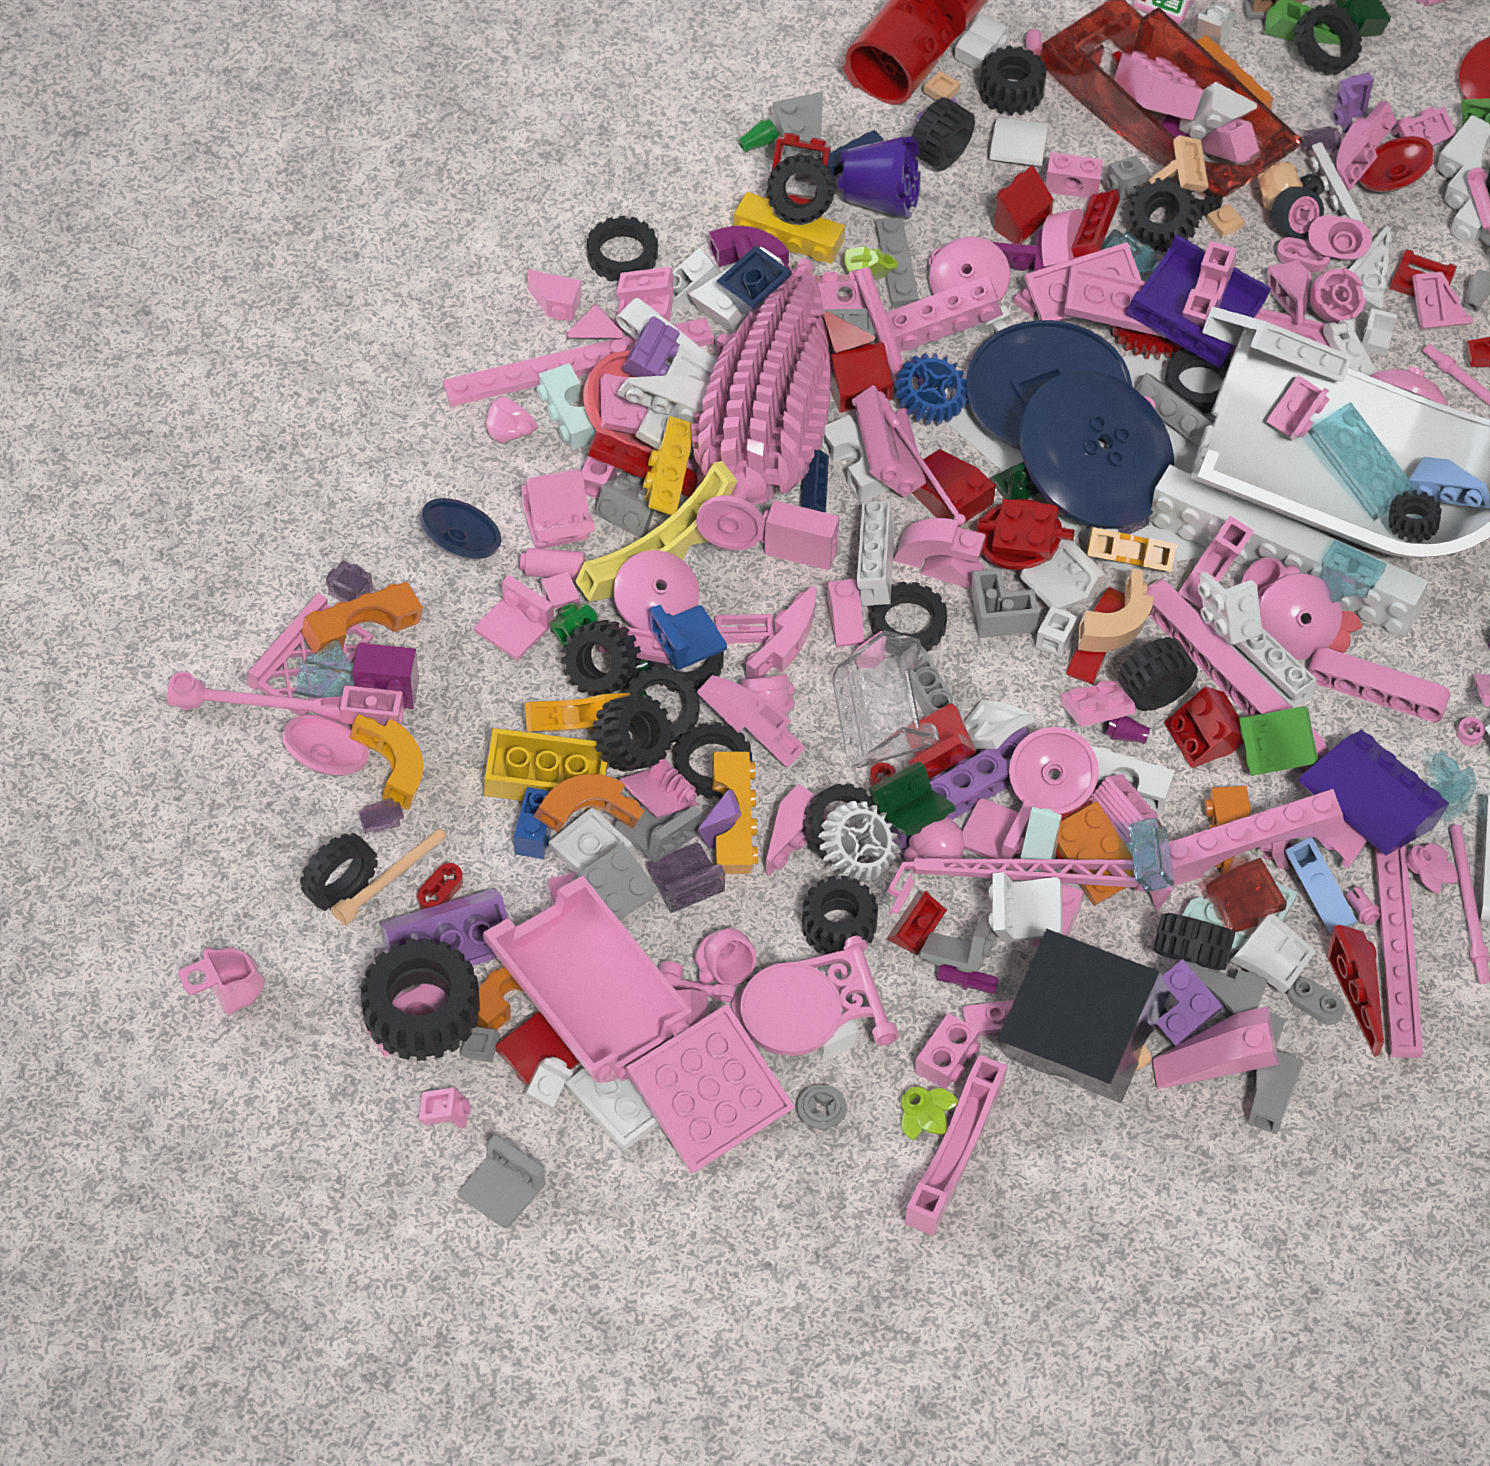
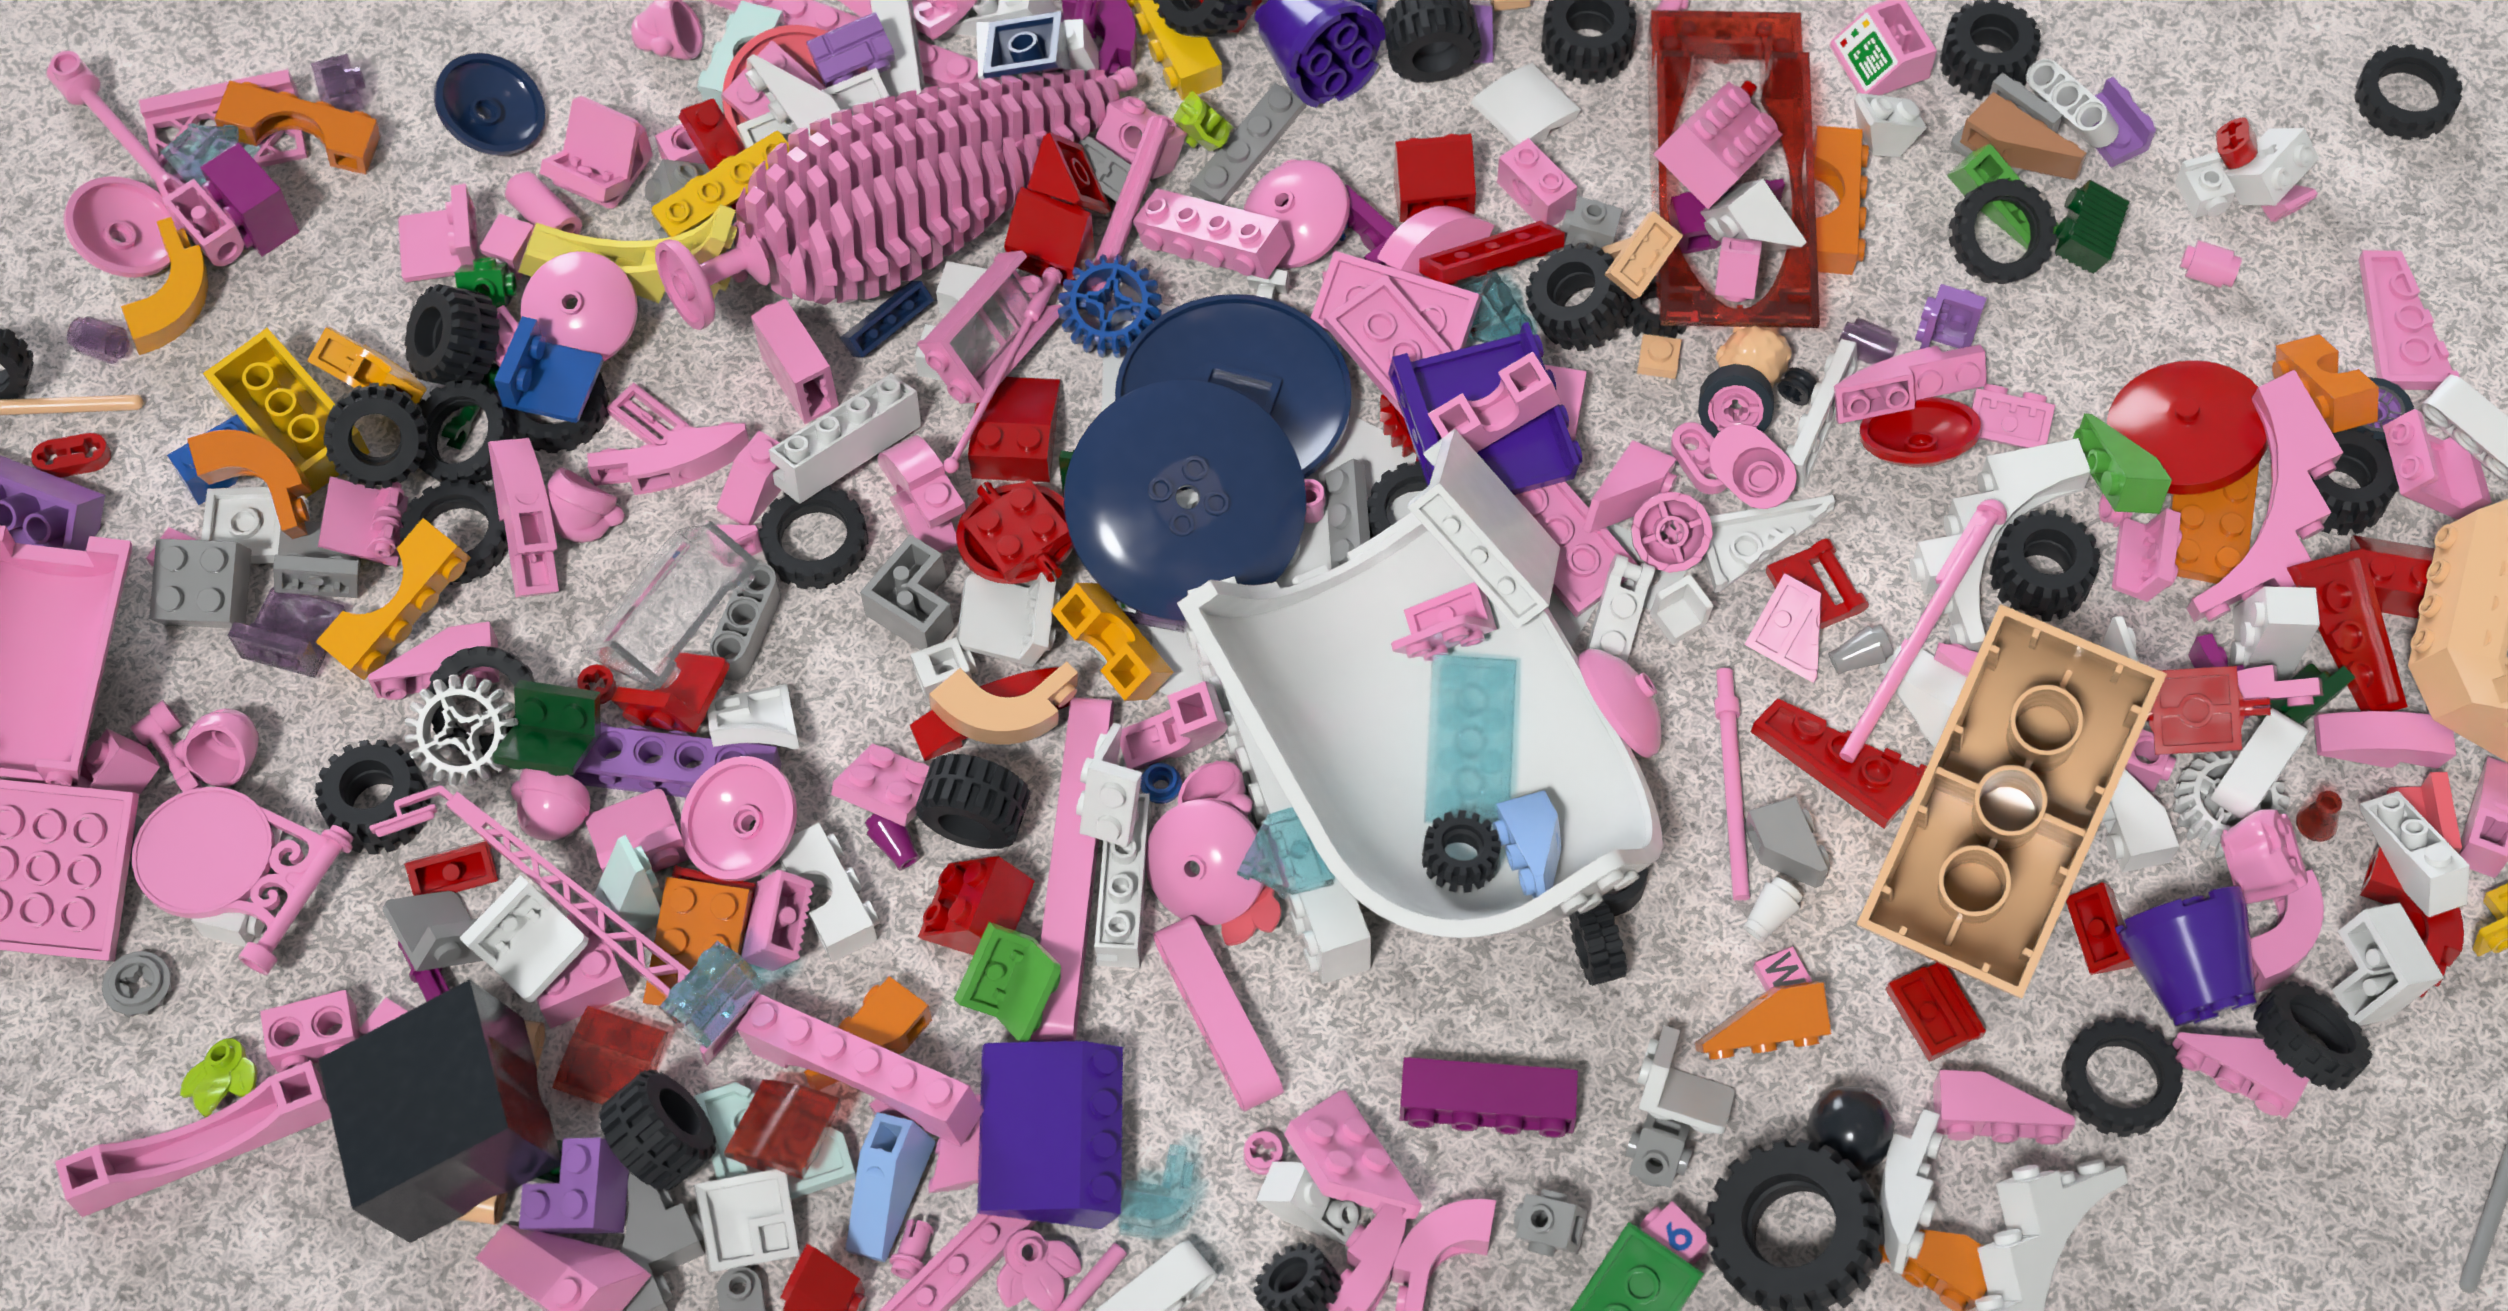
camera: 45 degrees right, 5 degrees up
(720, 818) = (366, 593): medium lavender slope -> none
(1116, 933) = (607, 1055): none -> clear red slope

